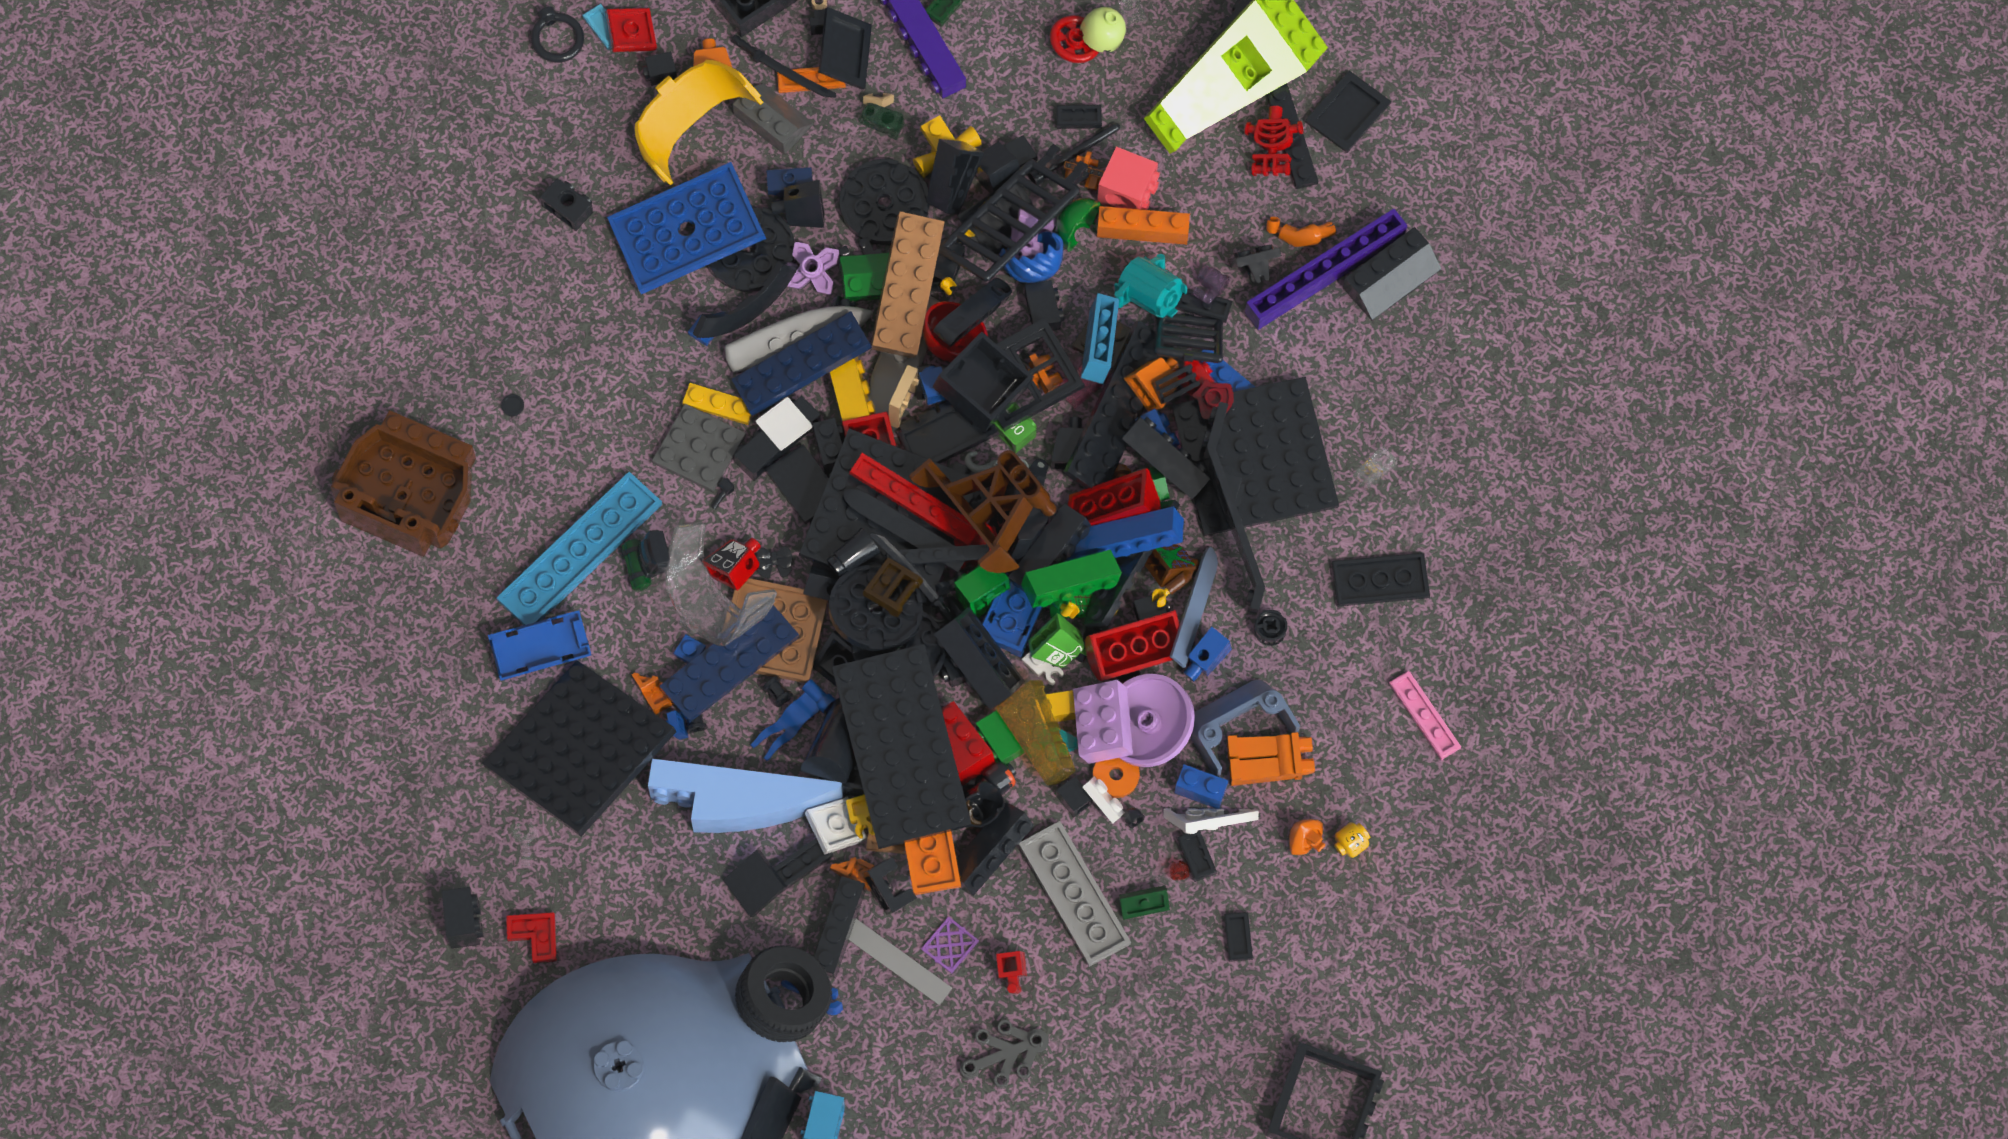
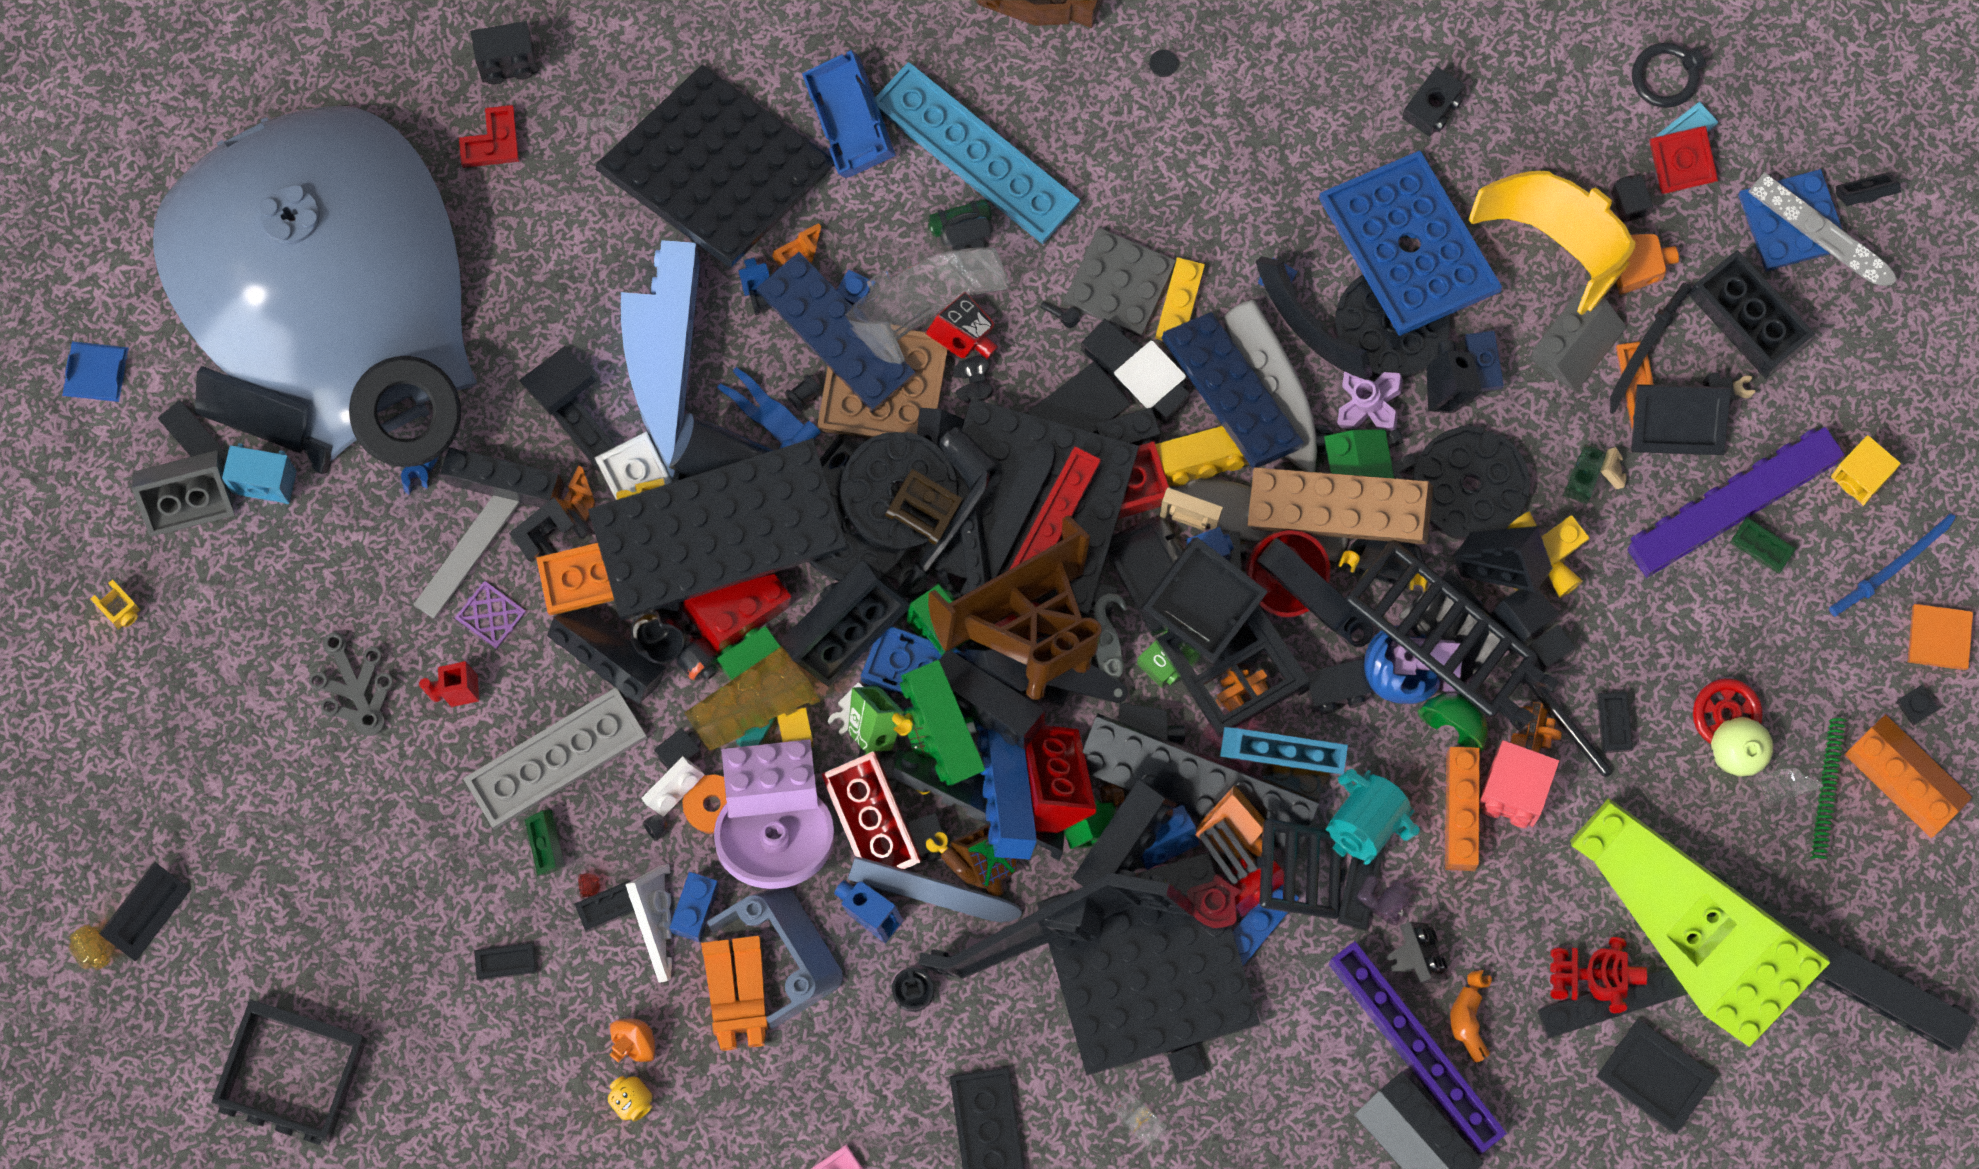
camera: 90 degrees right, 5 degrees up
(1332, 434) = (1186, 1064): none -> black plate

